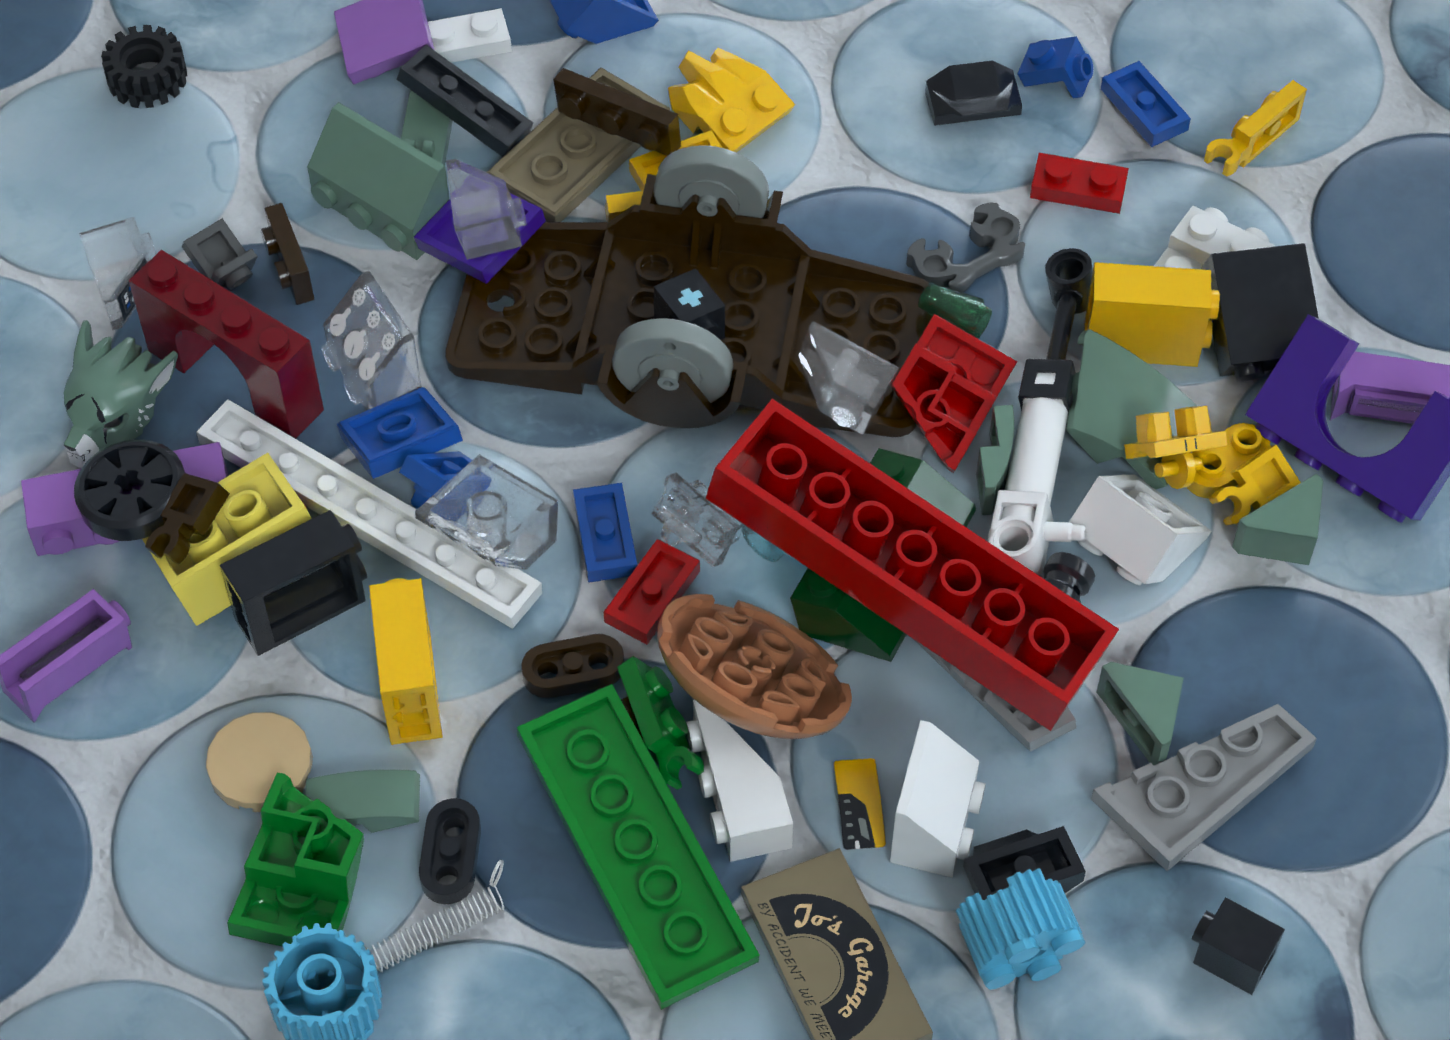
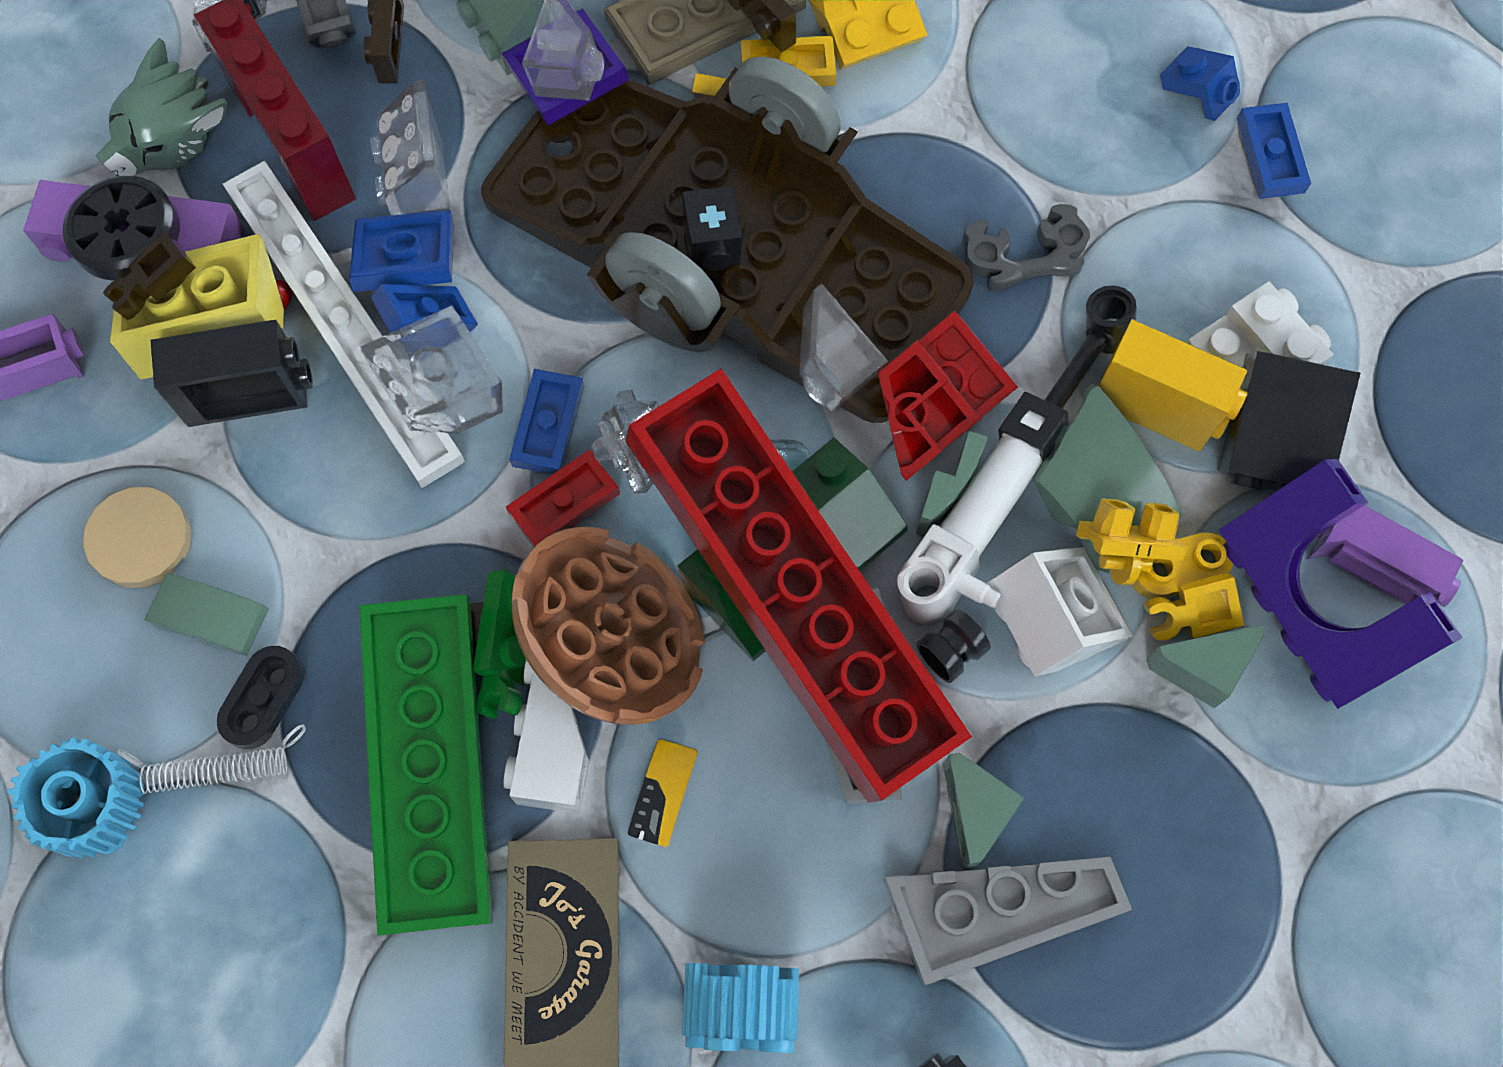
camera: 20 degrees right, 15 degrees up
(297, 869) = (116, 665): green slope -> none
(405, 661) = (293, 492): yellow window -> none
(572, 664) = (458, 549): dark brown plate -> none
(936, 804) = (723, 835): white slope -> none
(957, 308) = (982, 311): clear green cone -> none
(972, 93) = (1107, 81): black slope -> none
(1020, 852) = (779, 928): black slope -> none
(1079, 183) = (1169, 213): red plate -> none
(1258, 131) = (1372, 220): yellow plate -> none

